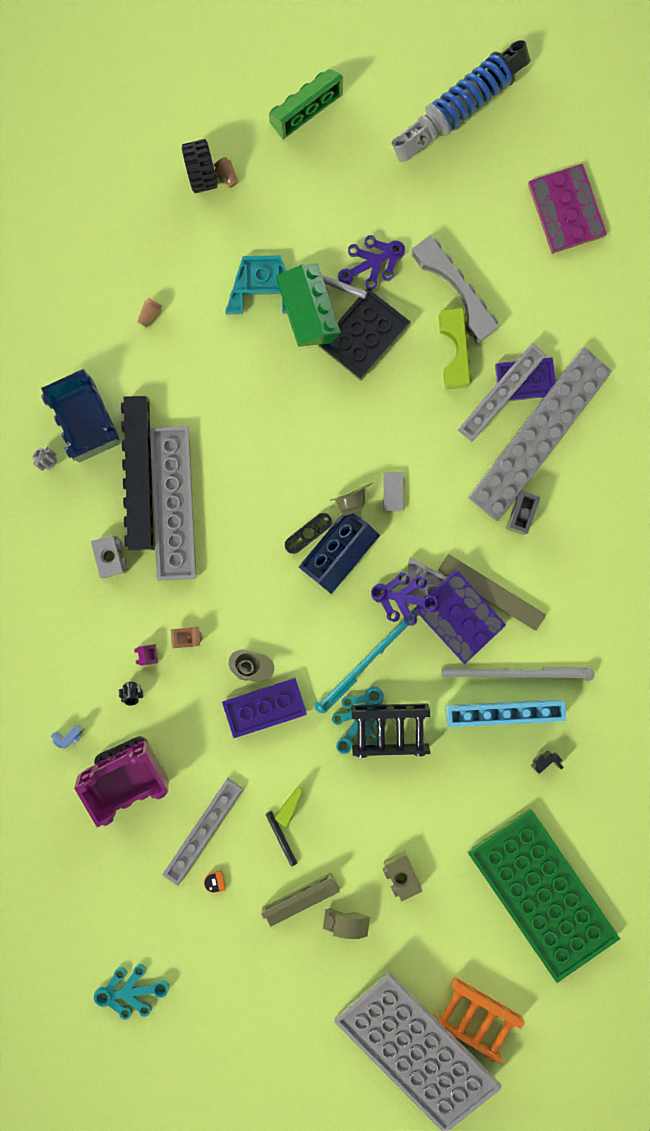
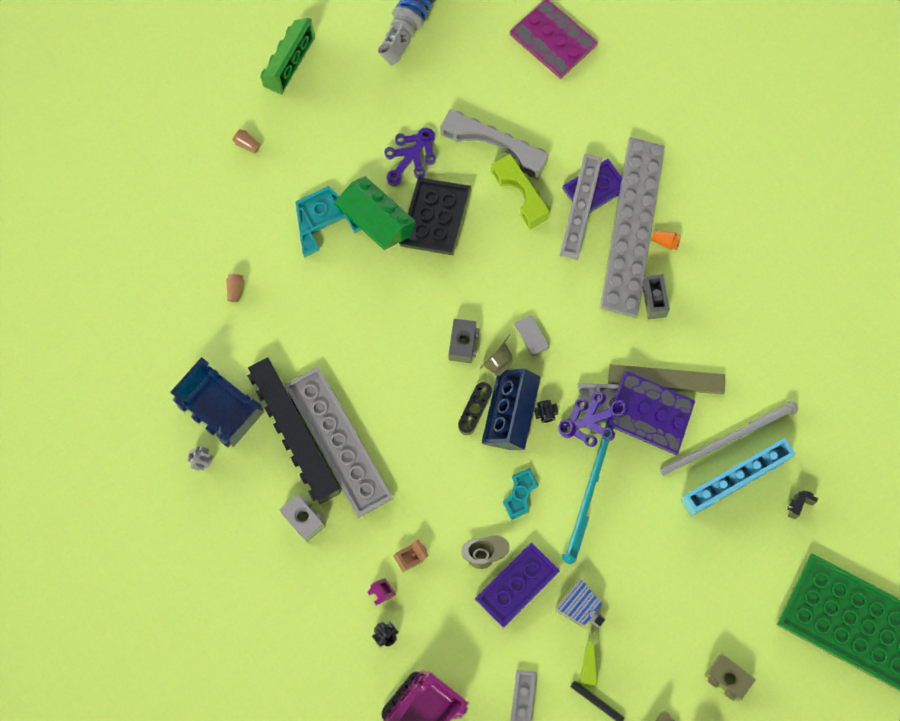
camera: 25 degrees left, 15 degrees down
(72, 737) = (350, 704): medium blue bracket -> none
(199, 166) = (222, 145): black tyre -> none
(309, 754) = (581, 606): none -> torso
(316, 622) = (516, 503): none -> teal tile
(330, 455) = (457, 350): none -> dark grey brick
(345, 287) = (399, 185): light grey bar -> none
(354, 728) = (611, 549): teal plant -> none
(369, 568) = (546, 411): none -> black gear
(399, 713) = (627, 534): black fence -> none
(564, 463) = (667, 239): none -> orange cone

